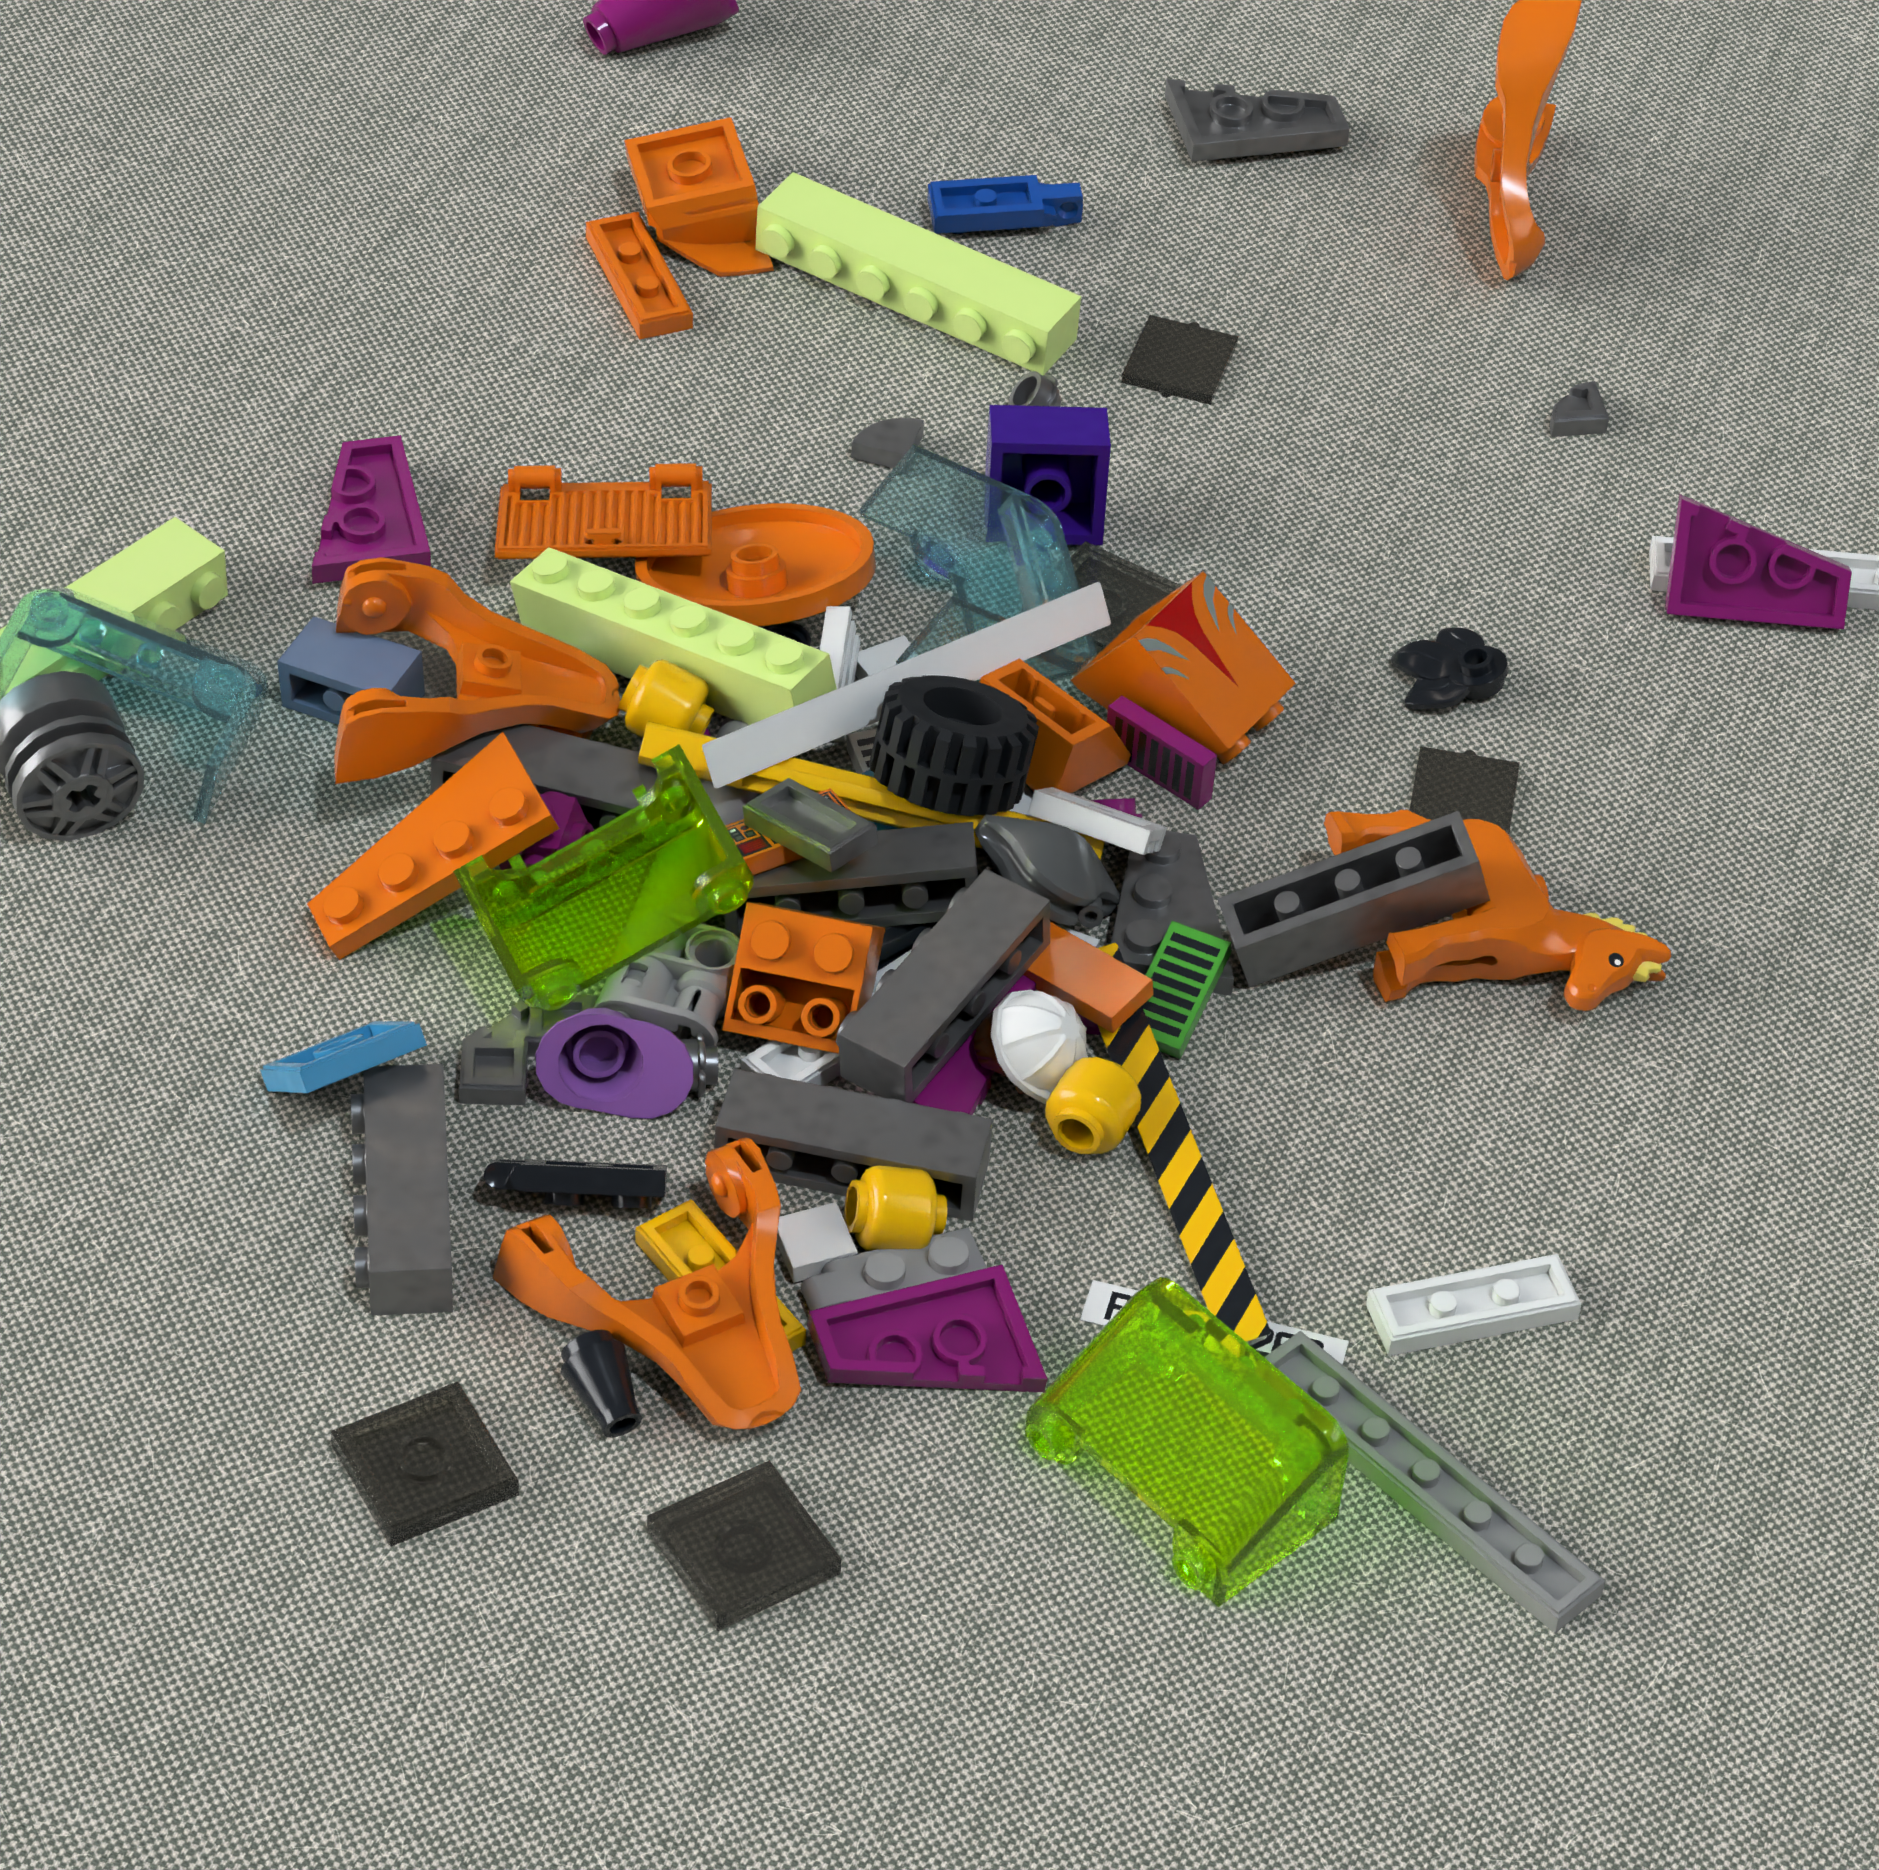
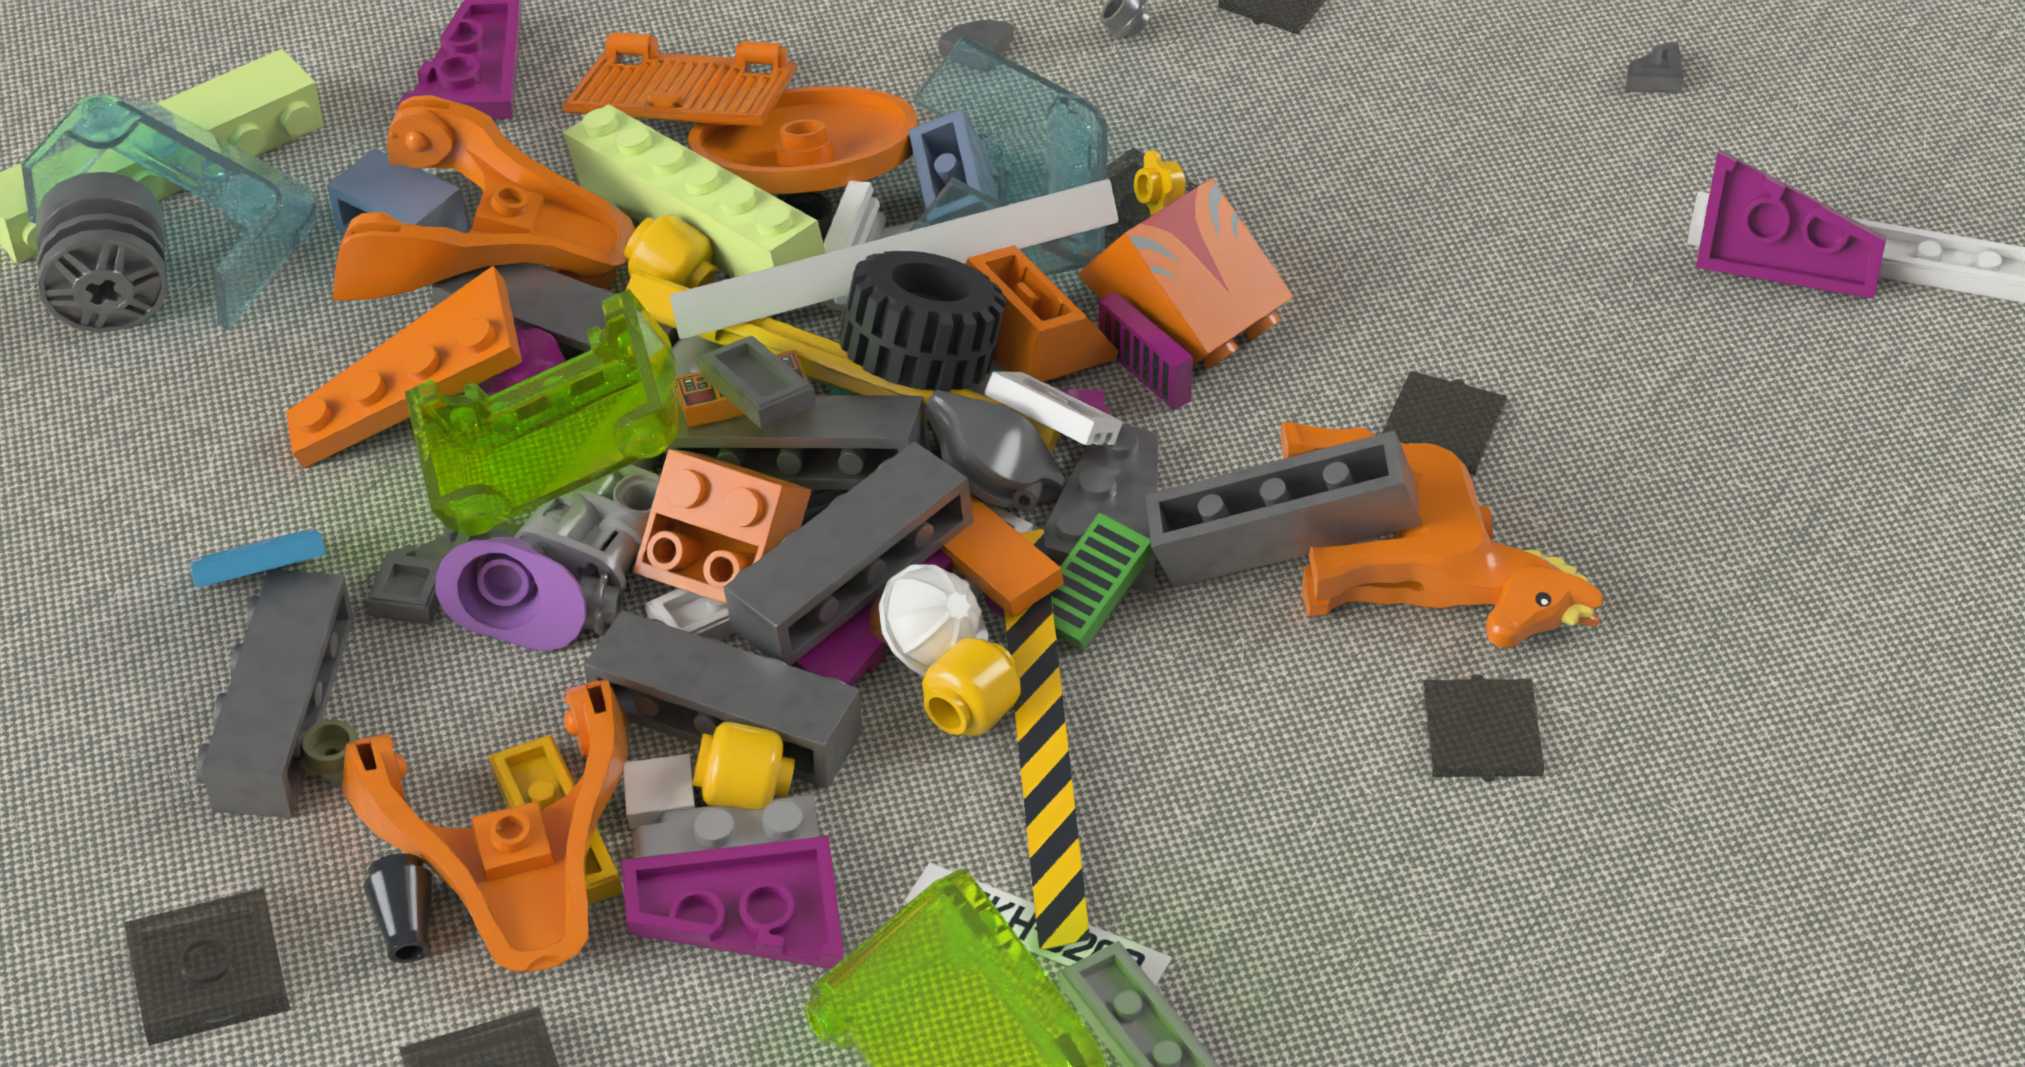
camera: 15 degrees right, 0 degrees up
(476, 1240) = (326, 748): none -> olive plate
(570, 1180) = (437, 702): black hinge -> none
(916, 575) = (948, 150): none -> sand blue brick
(1057, 458) = (1113, 65): dark purple brick -> none
(1130, 580) = (1158, 182): none -> yellow plate
(1451, 669) = (1461, 299): black plate -> none
(1473, 1304) = (1309, 935): white tile -> none
(1580, 1090) = (1482, 728): none -> clear smoke piece

